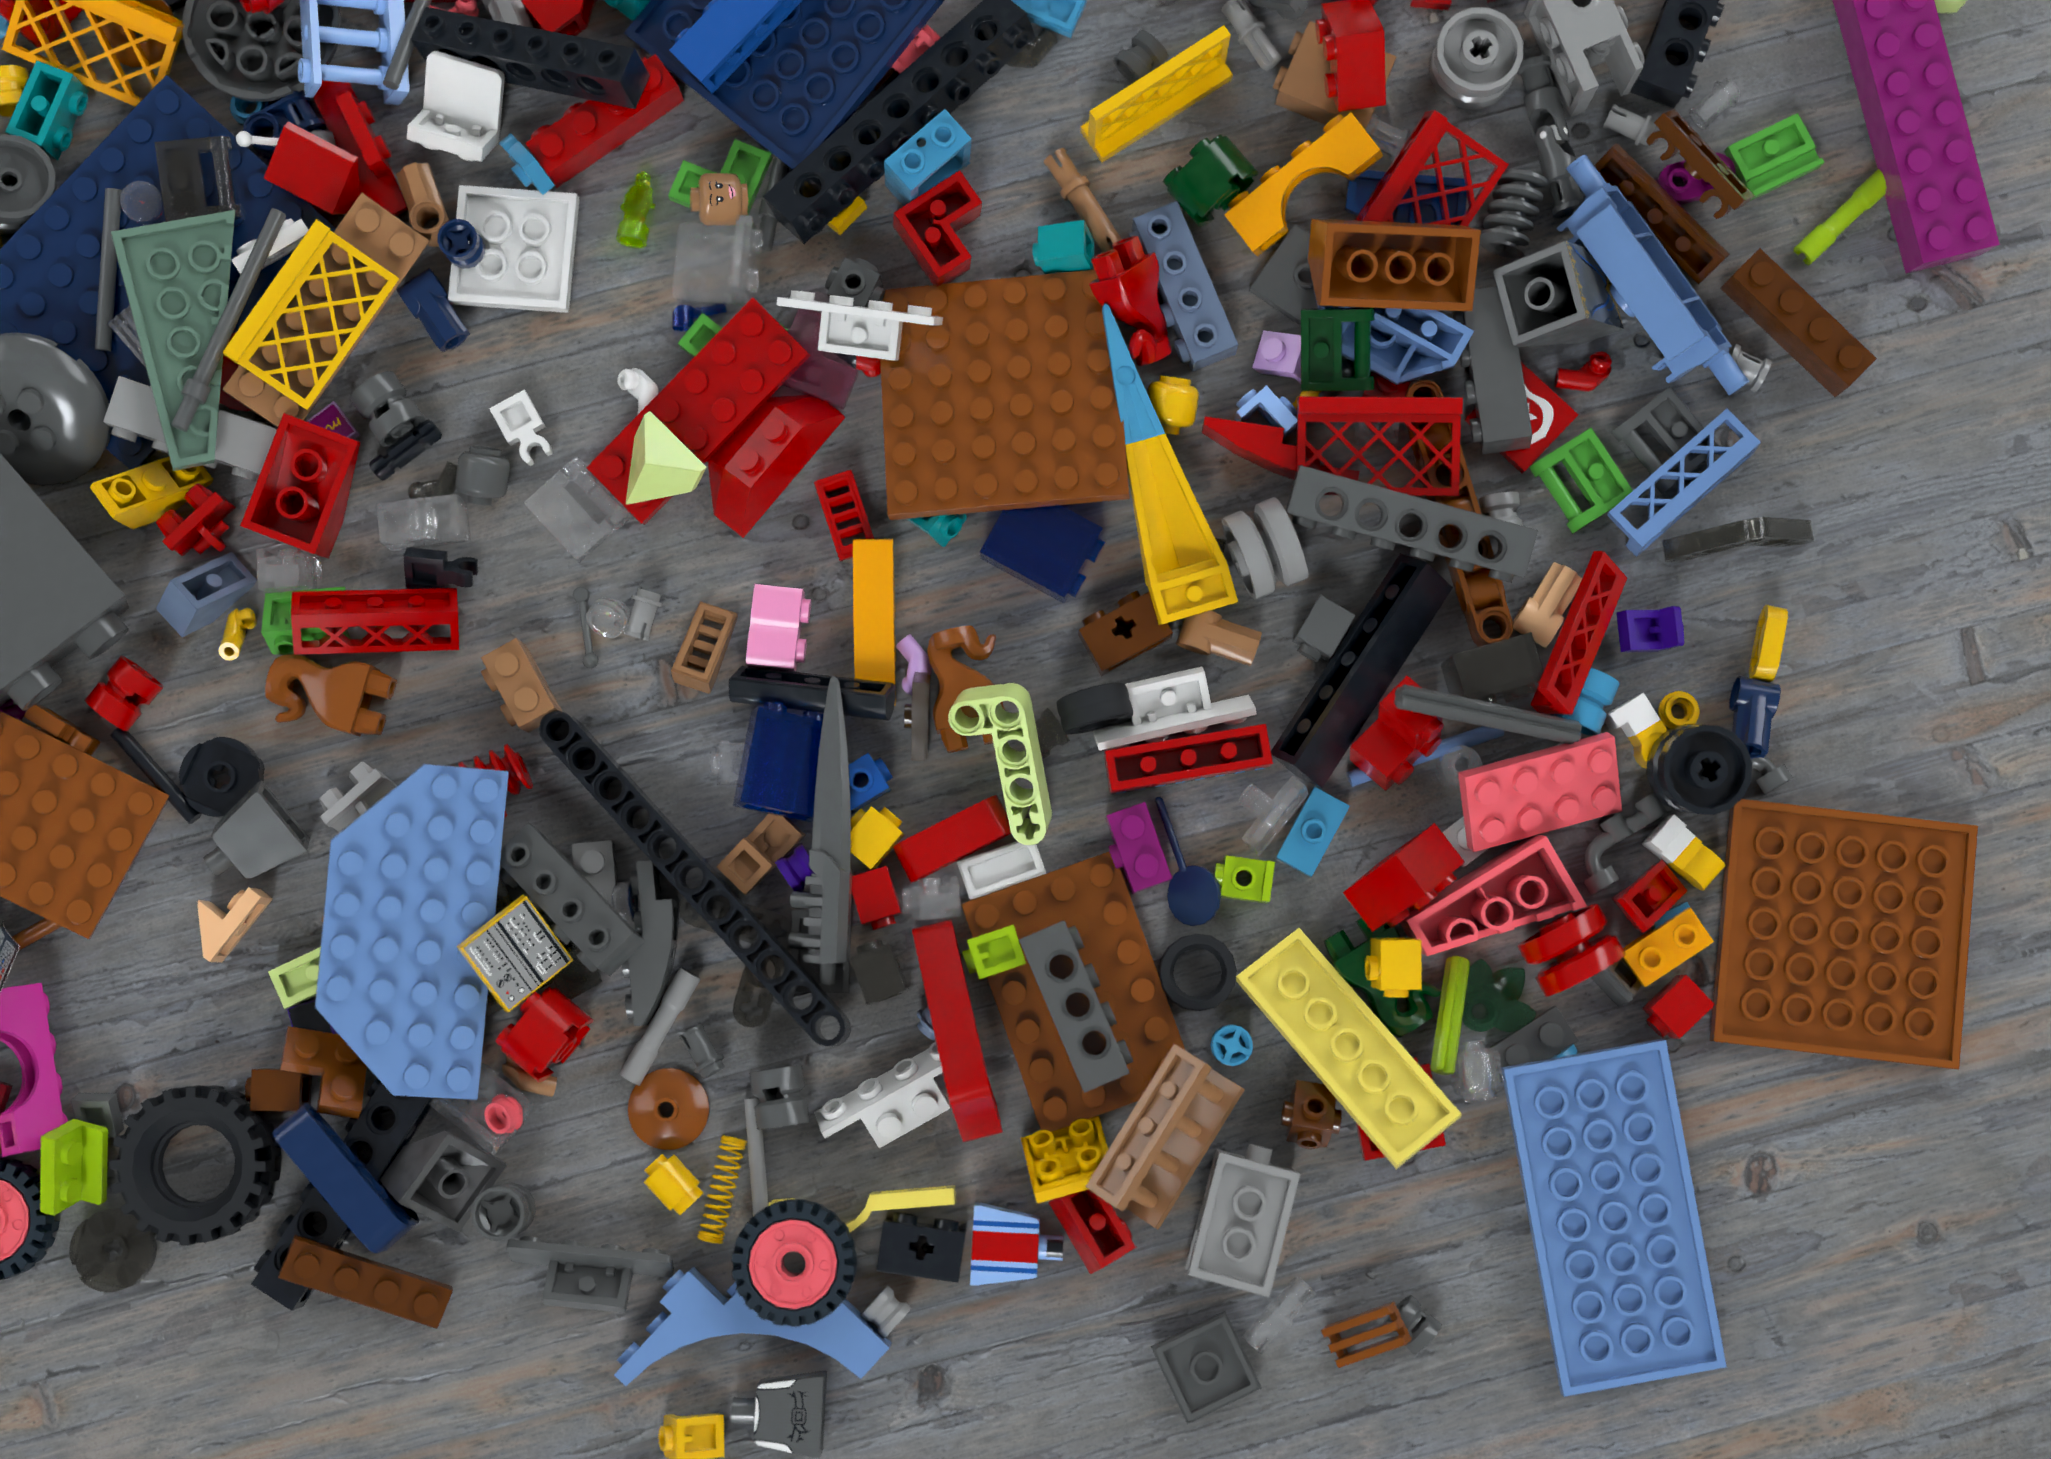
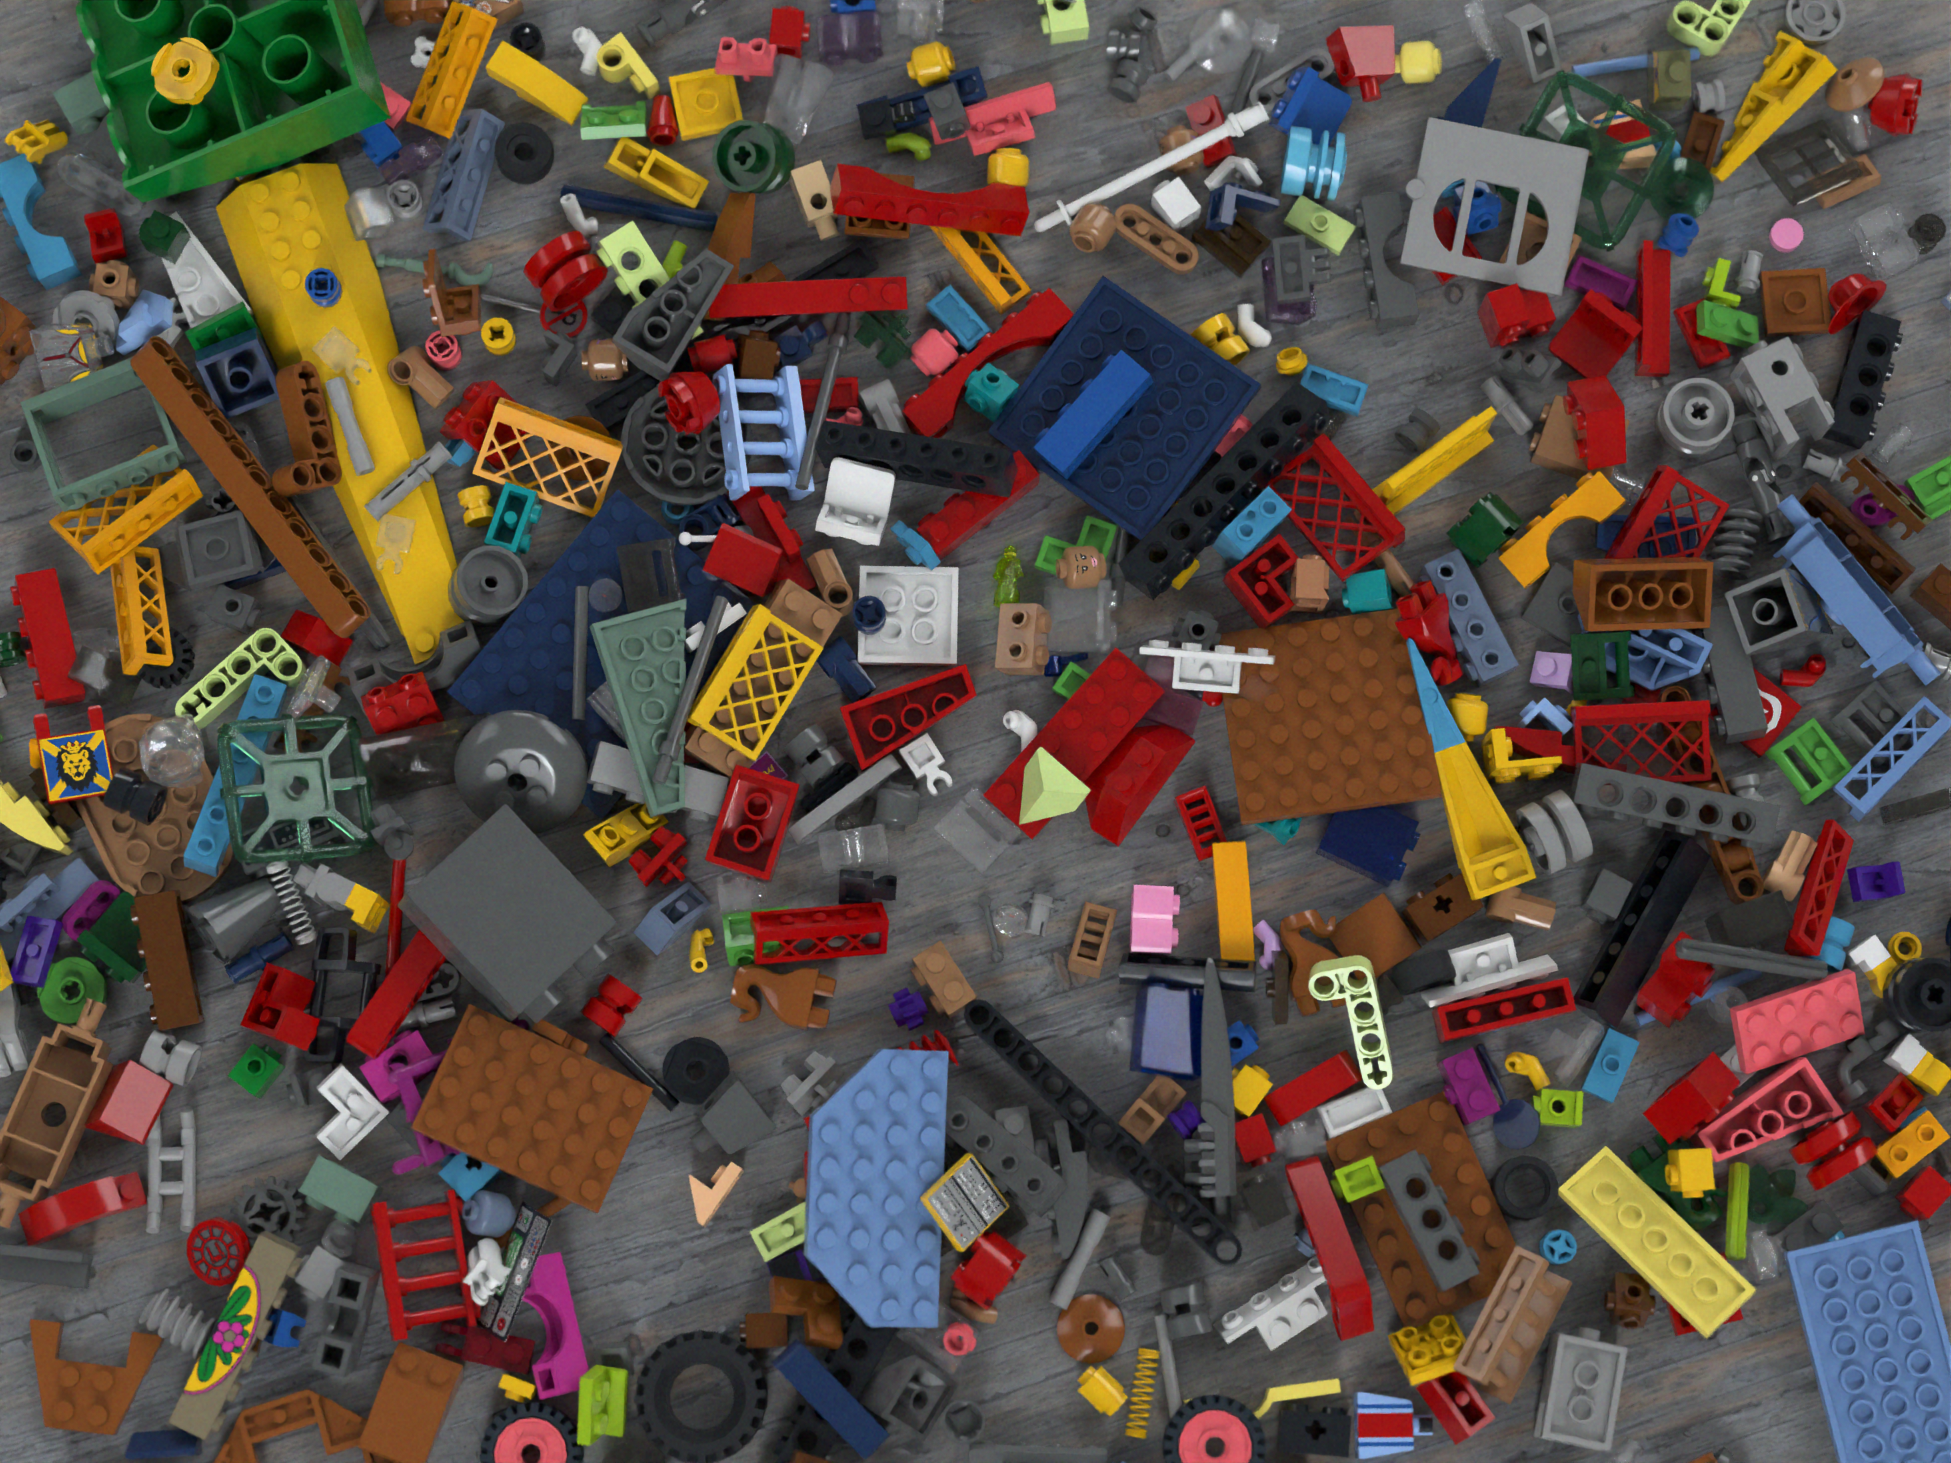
camera: 10 degrees left, 5 degrees down
(421, 463) = (844, 799): none -> light grey beam
(476, 717) = (908, 1009): none -> dark purple gear
(495, 364) = (900, 714): none -> red wedge
(645, 283) = (1022, 639): none -> medium nougat brick
(992, 235) = (1309, 585): none -> nougat window
(1043, 661) = (1377, 934): none -> dark orange slope
(1064, 134) = (1360, 497): none -> red fence
(1212, 826) = (1527, 1065): none -> yellow arm
(1215, 471) = (1495, 753): none -> yellow bracket

